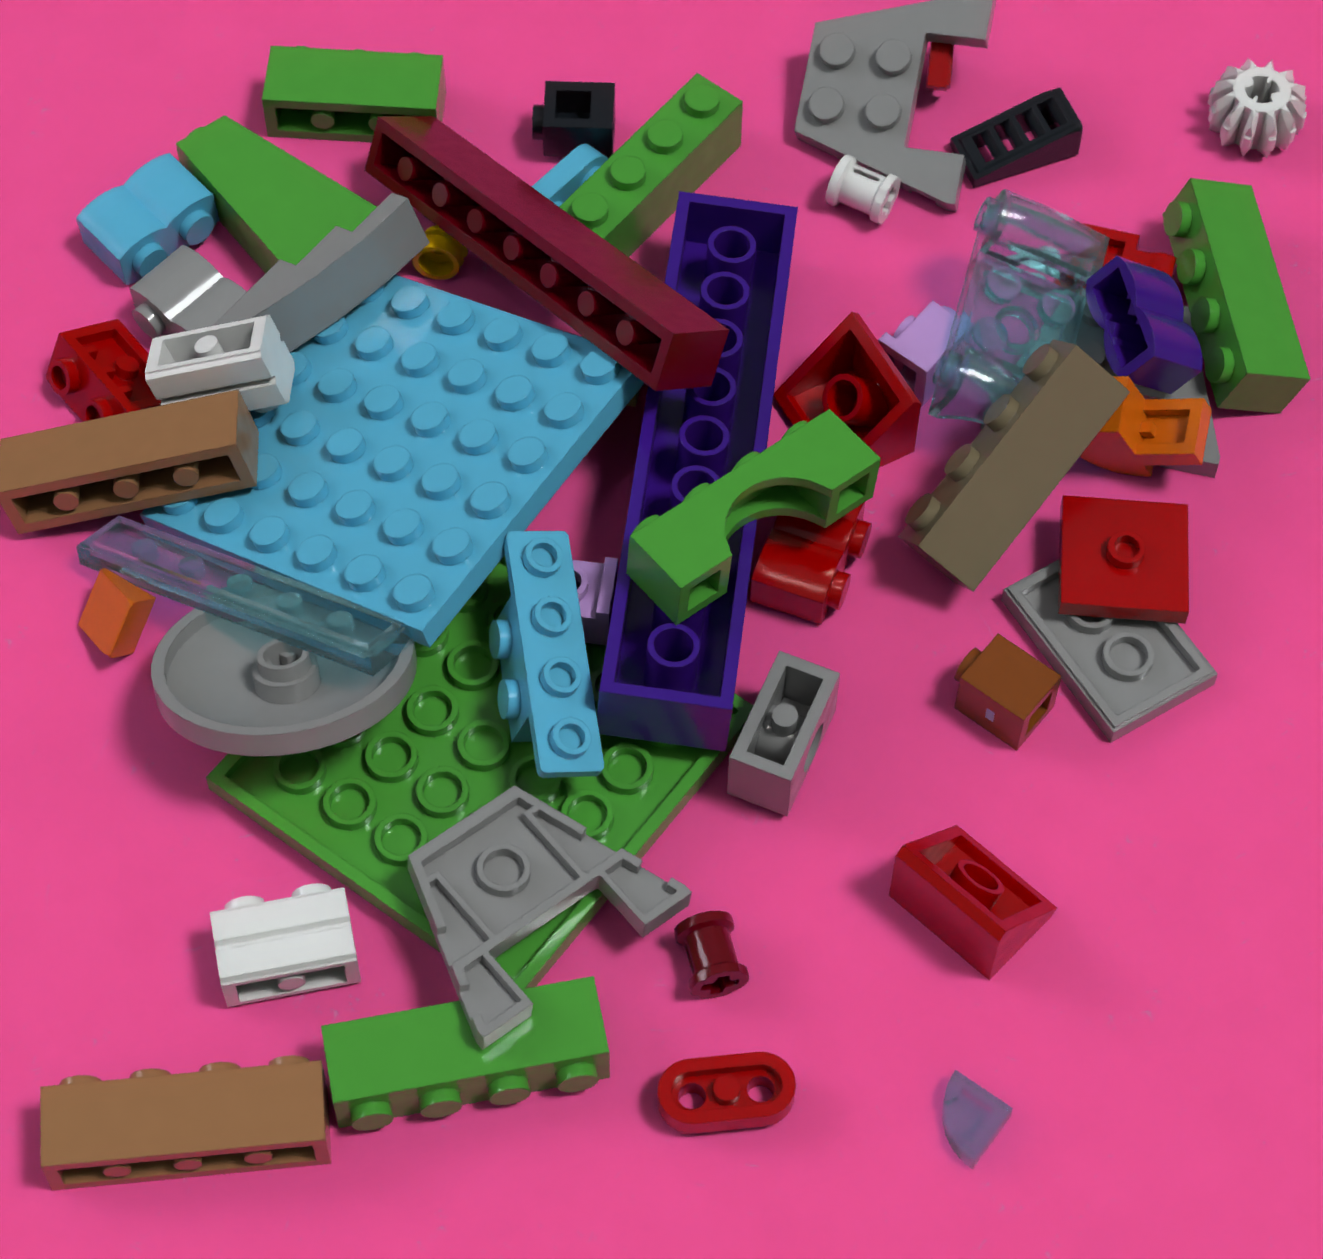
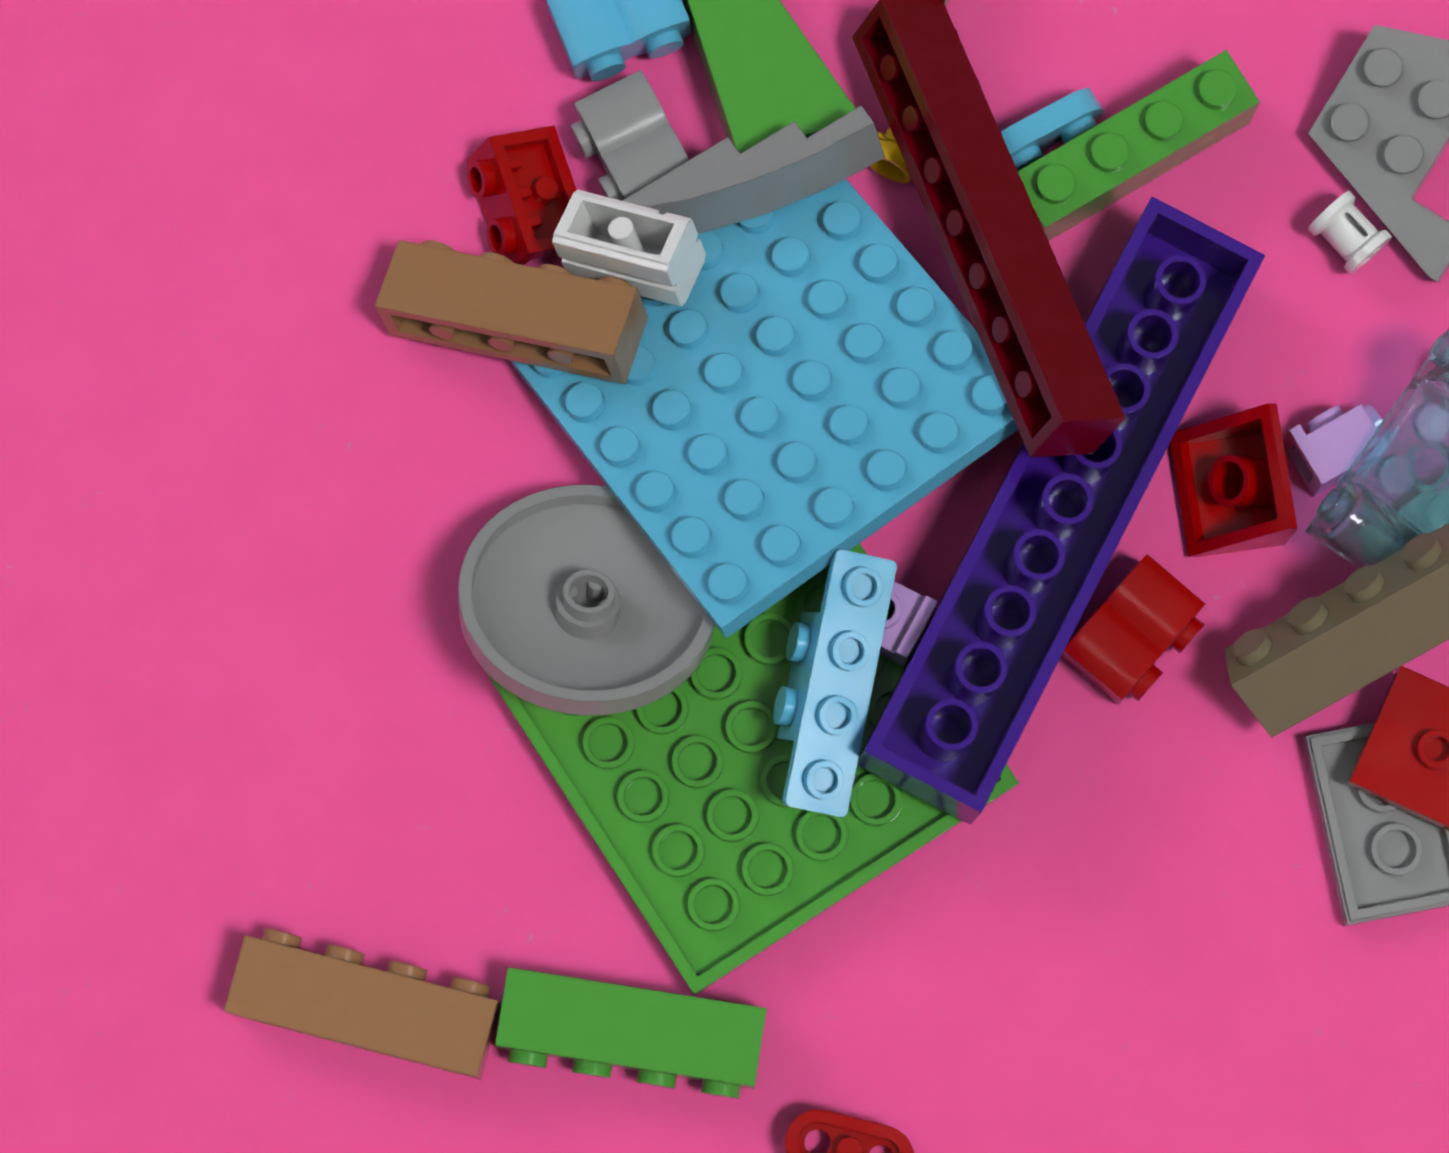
camera: 20 degrees right, 20 degrees up
(115, 614) = (452, 462): orange slope -> none
(247, 595) = (575, 502): clear light blue tile -> none
(284, 944) = (504, 863): white brick -> none
(508, 876) = (721, 883): light grey wing -> none
(575, 116) = (1101, 33): black brick -> none
(711, 954) = (884, 1013): dark red bush -> none
(783, 733) = (1032, 822): brick -> none
(809, 474) = (1151, 592): bright green arch -> none
(968, 898) = (1147, 1041): red slope -> none
(1005, 690) = (1261, 846): dark orange brick -> none

